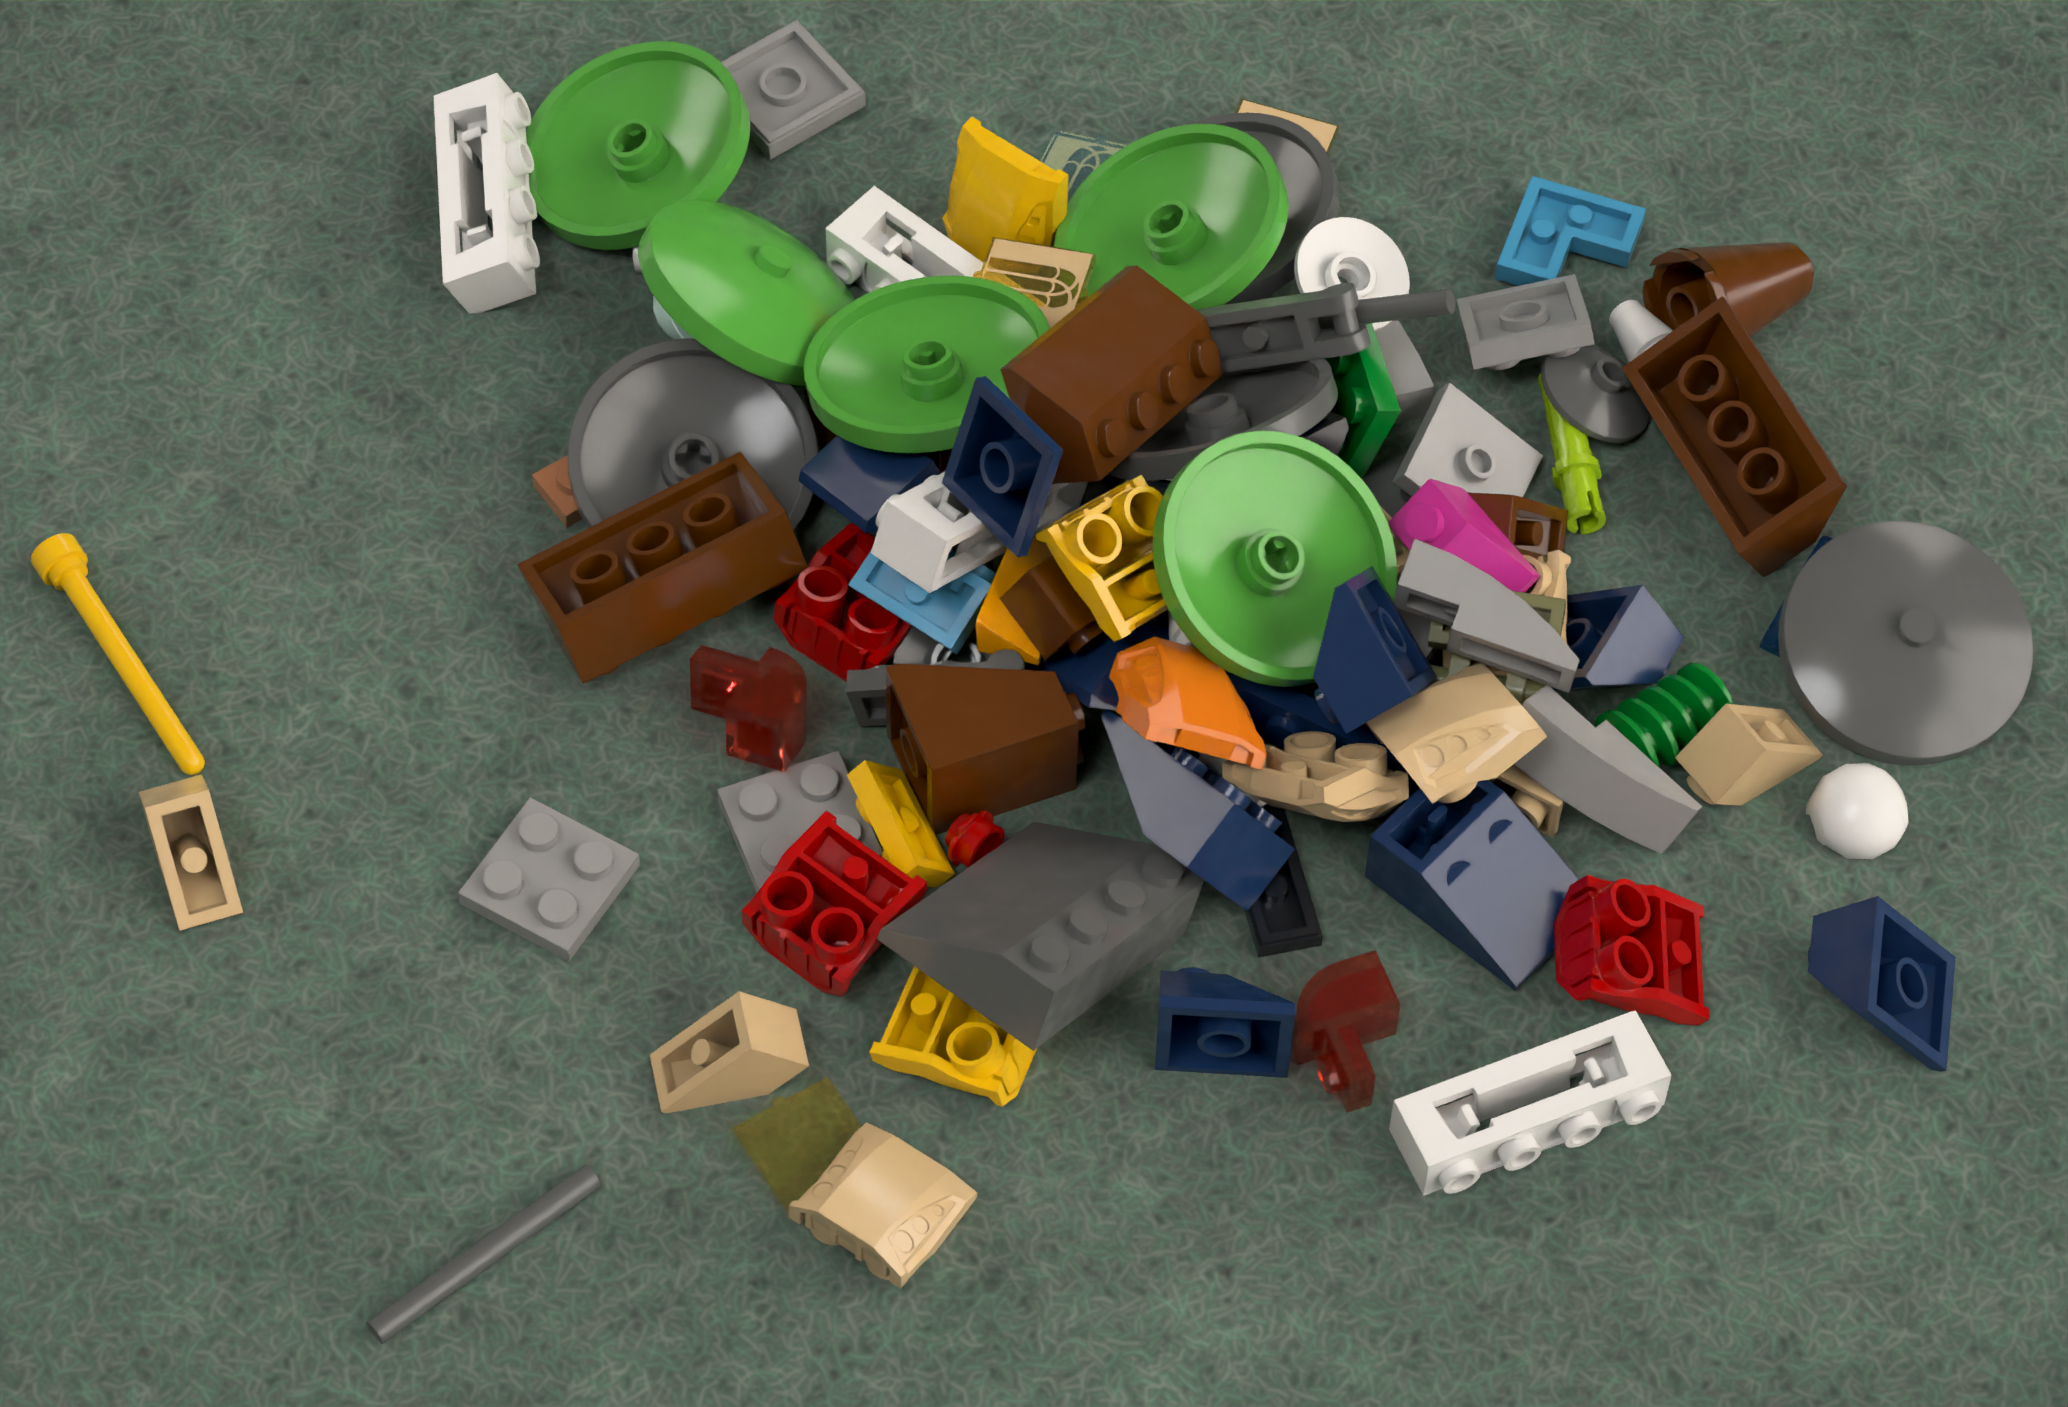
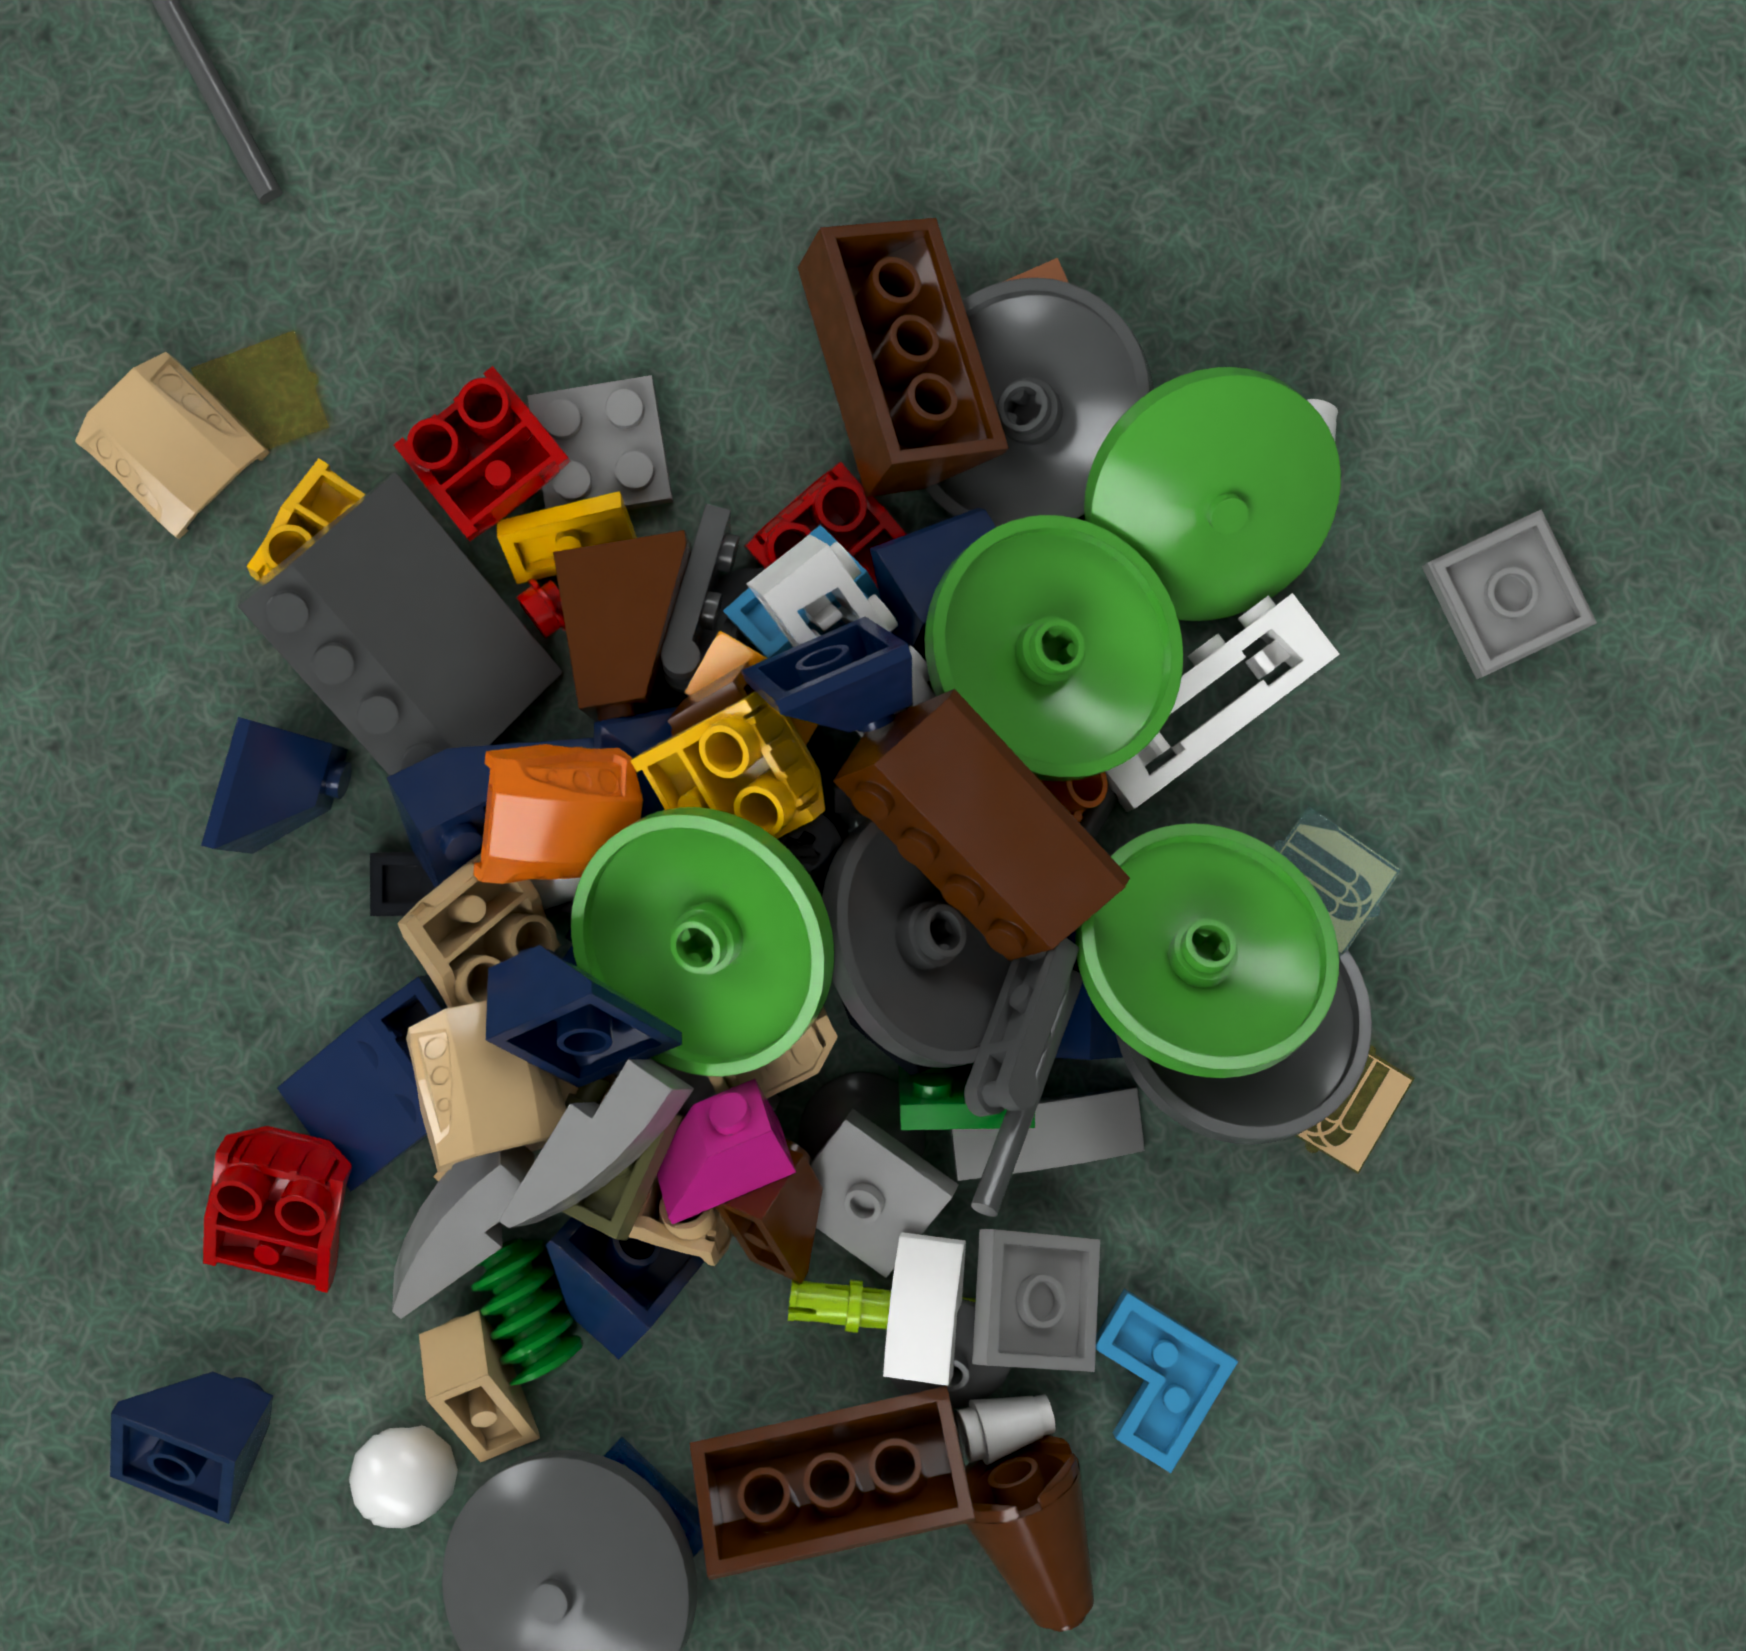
camera: 100 degrees right, 30 degrees up
(490, 125) = (1415, 257): white brick -> none
(549, 879) = (591, 206): light grey plate -> none
(632, 138) = (1448, 418): bright green dish -> none
(730, 1055) = (349, 336): tan slope -> none
(758, 700) = (723, 438): clear red brick -> none
(1001, 194) = (1290, 783): yellow slope -> none
(1045, 274) = (1167, 791): piece -> none
(1337, 1015) = (275, 908): clear red brick -> none
(1354, 252) = (1106, 1154): white dish -> none
(1557, 389) = (924, 1308): none -> white slope
(1618, 1084) = (165, 1154): white brick -> none

